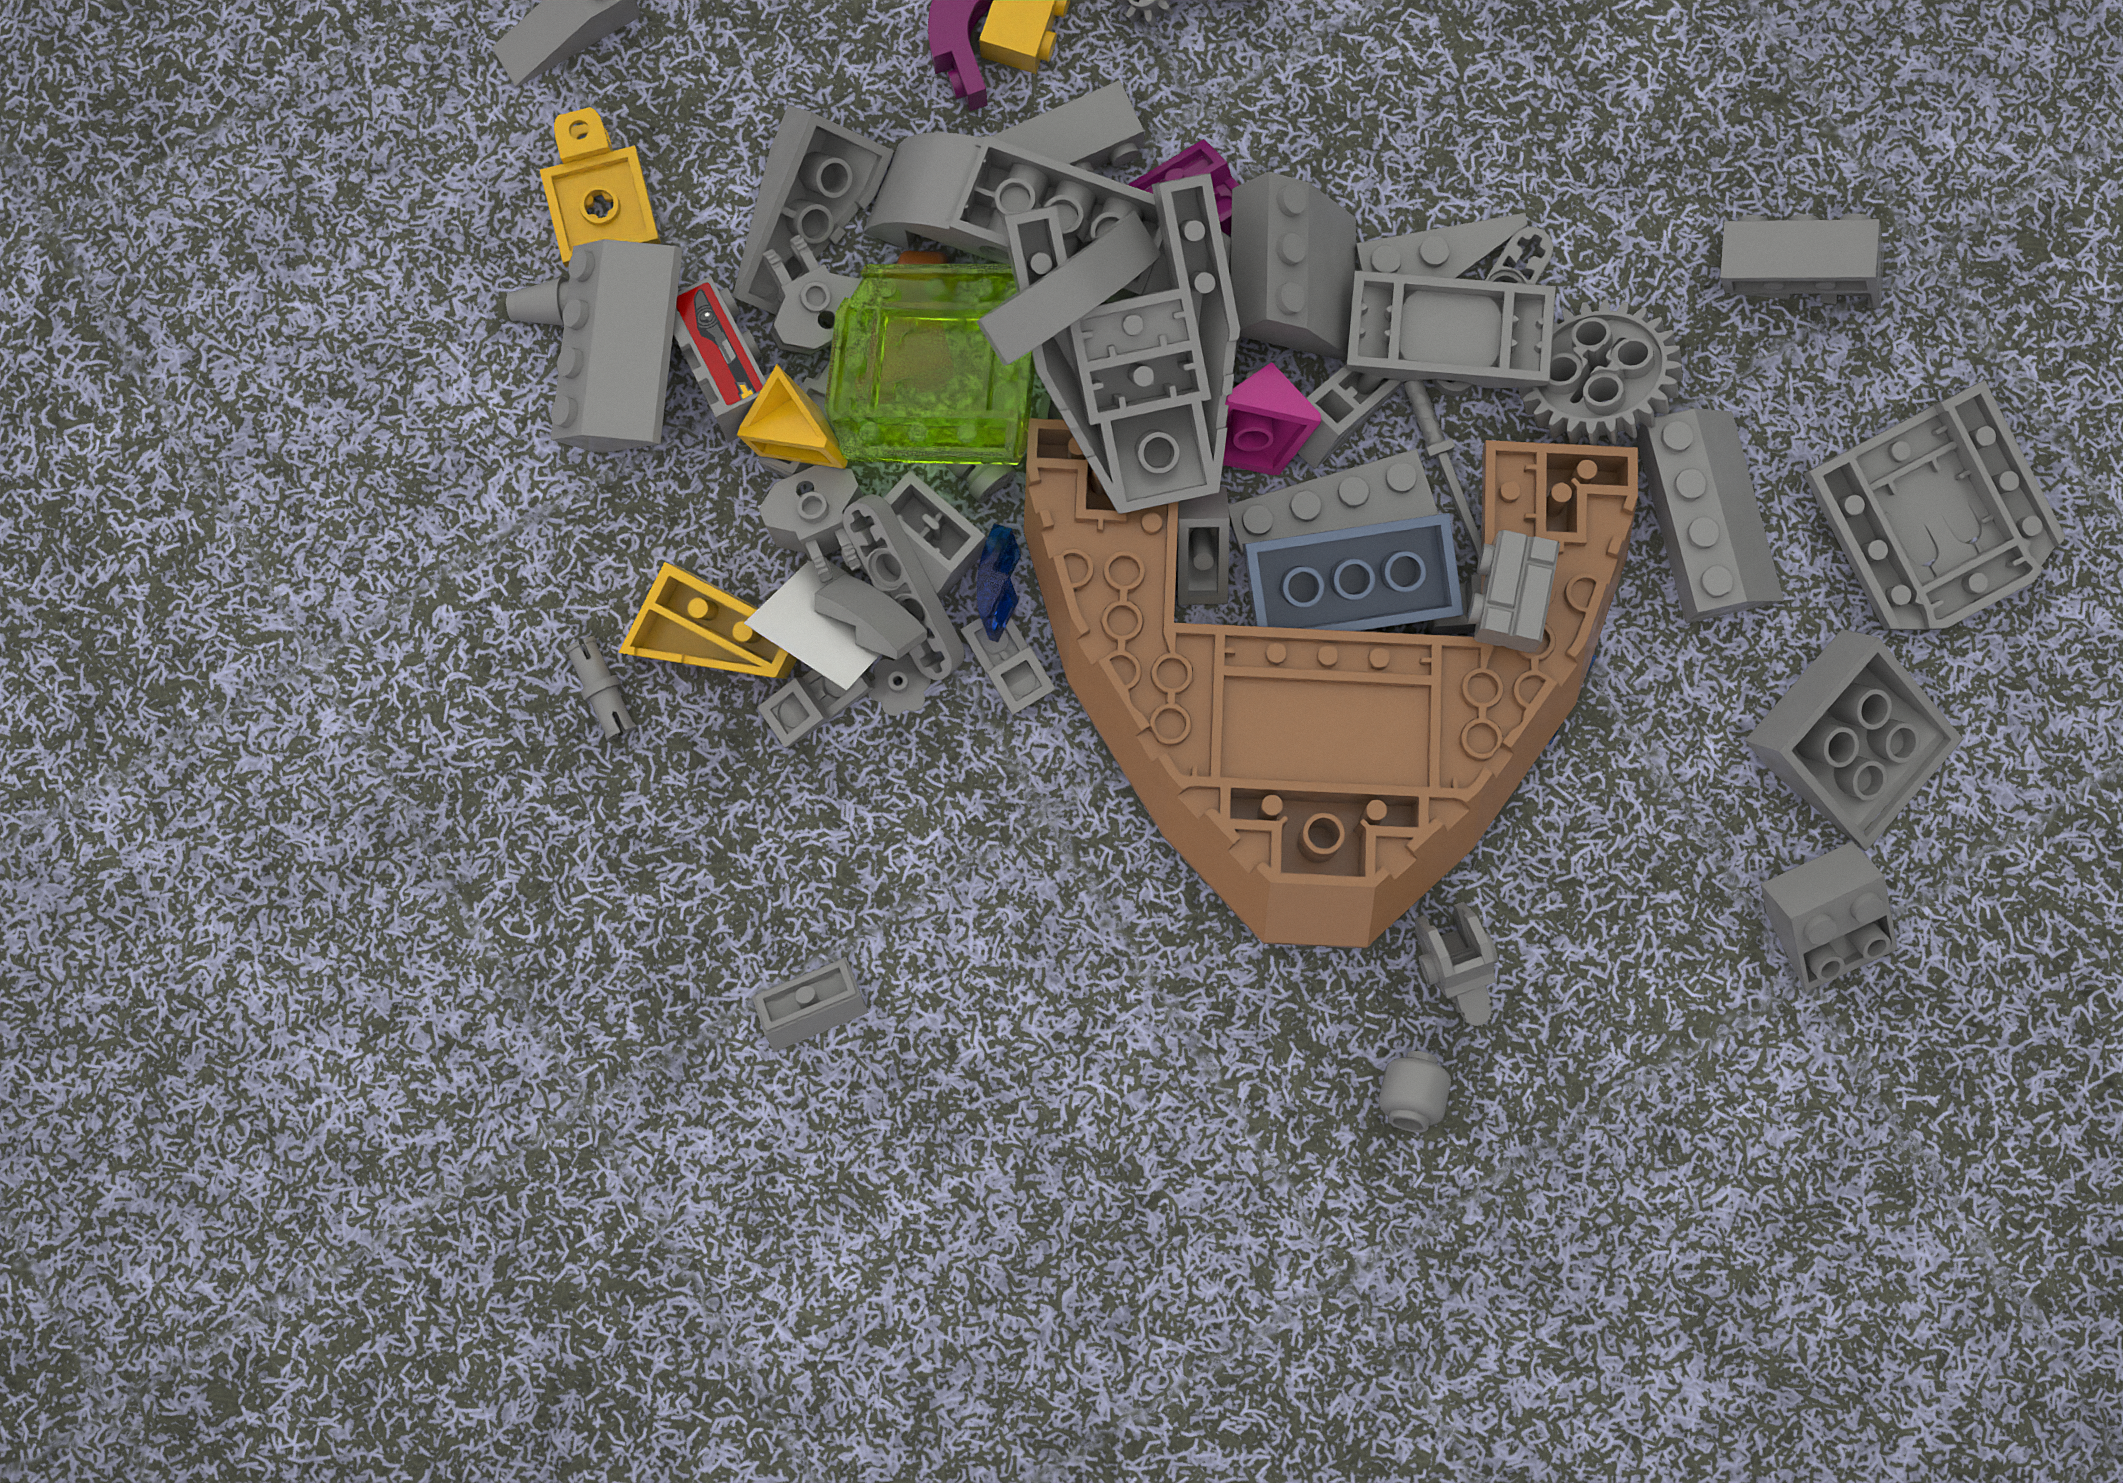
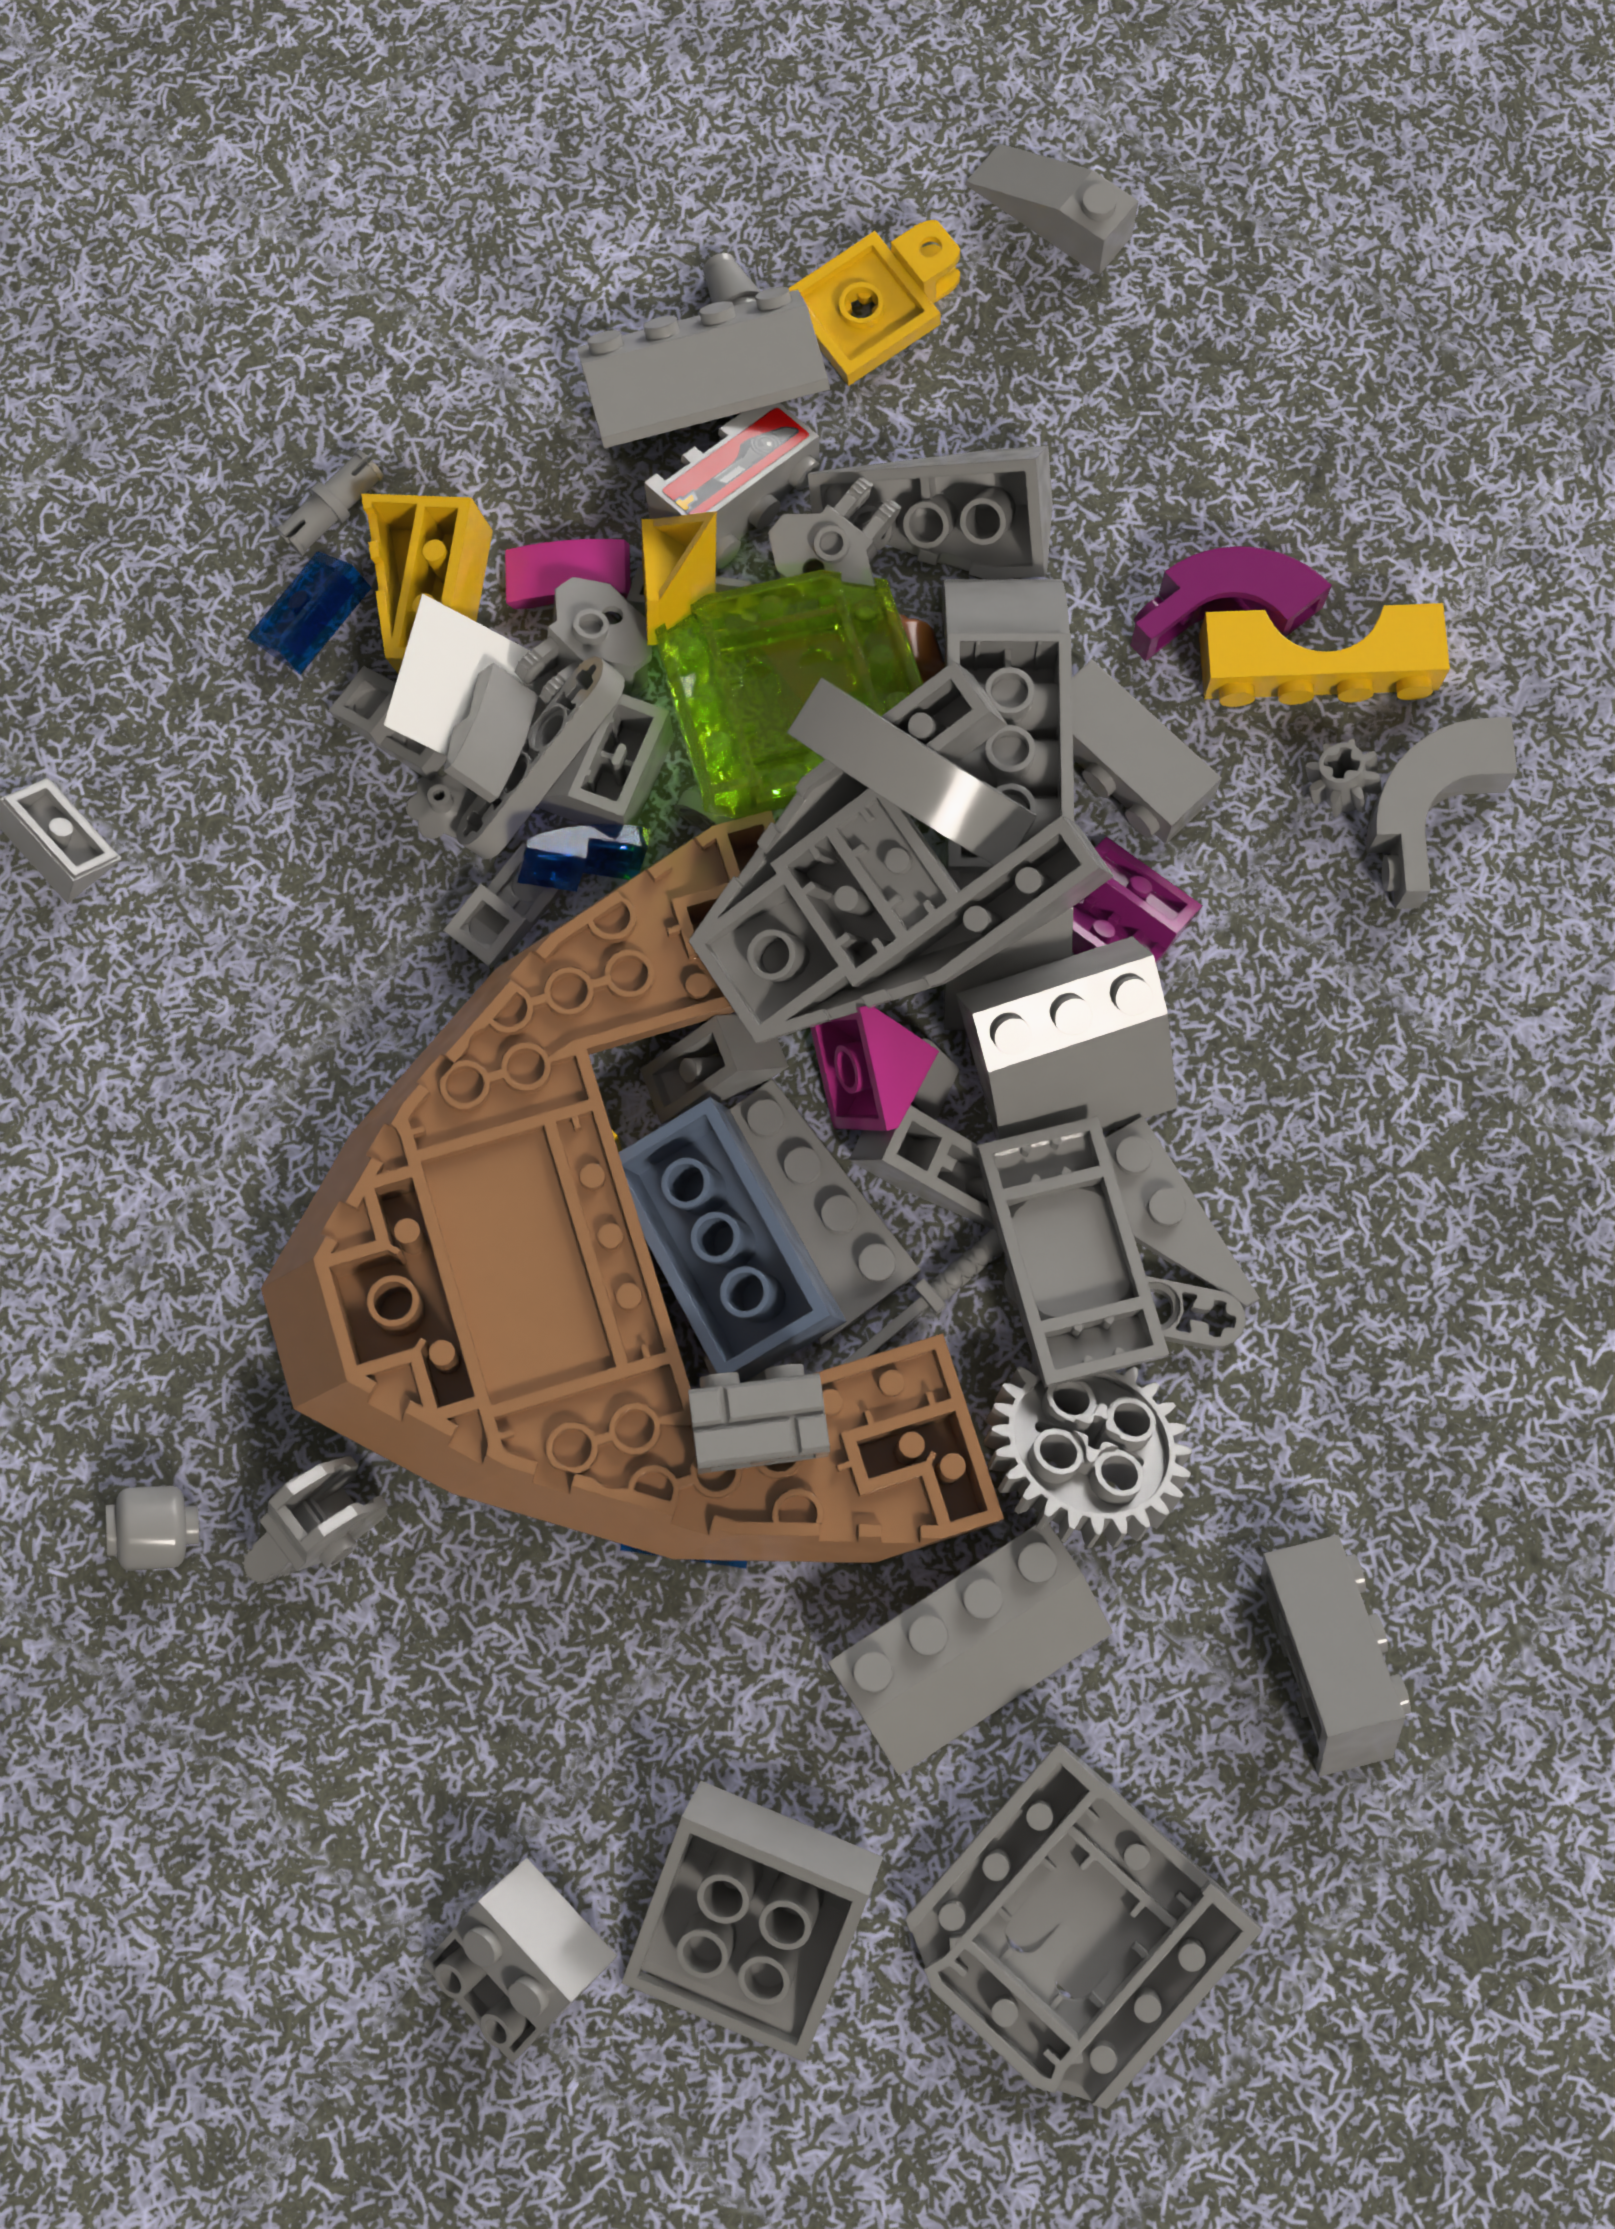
camera: 70 degrees right, 5 degrees down
(687, 737) = (310, 611): none -> clear blue slope
(737, 521) = (541, 567): none -> dark pink slope

